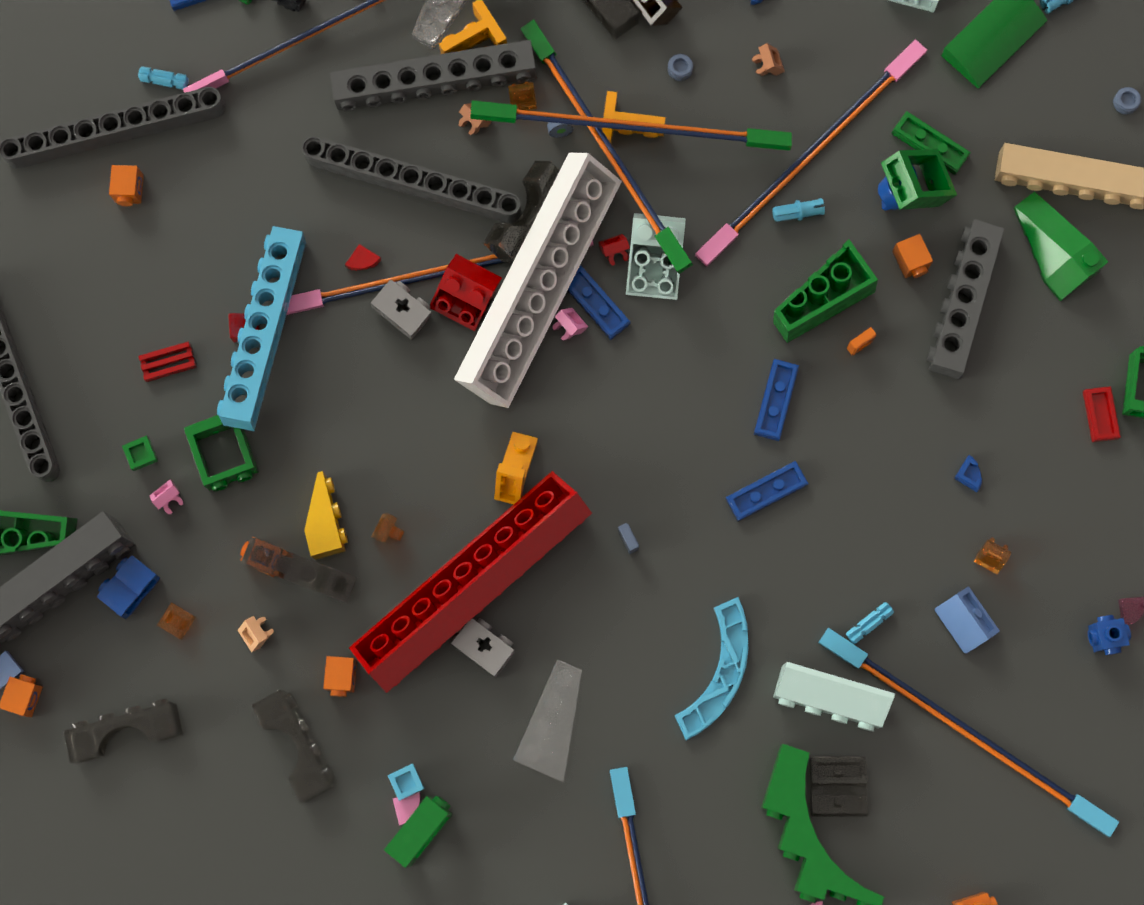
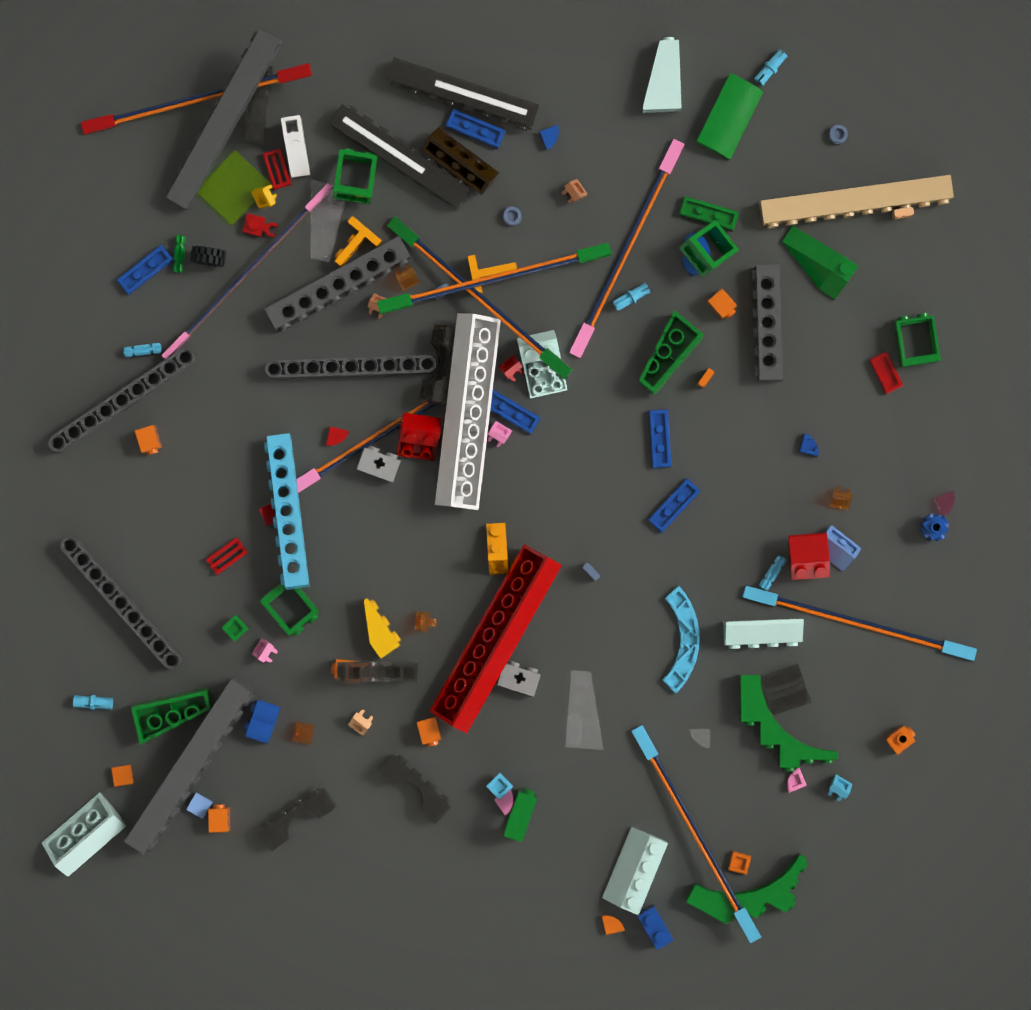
camera: 25 degrees left, 10 degrees up
(702, 811) = (701, 736): none -> clear tile
(926, 614) = (808, 556): none -> red slope

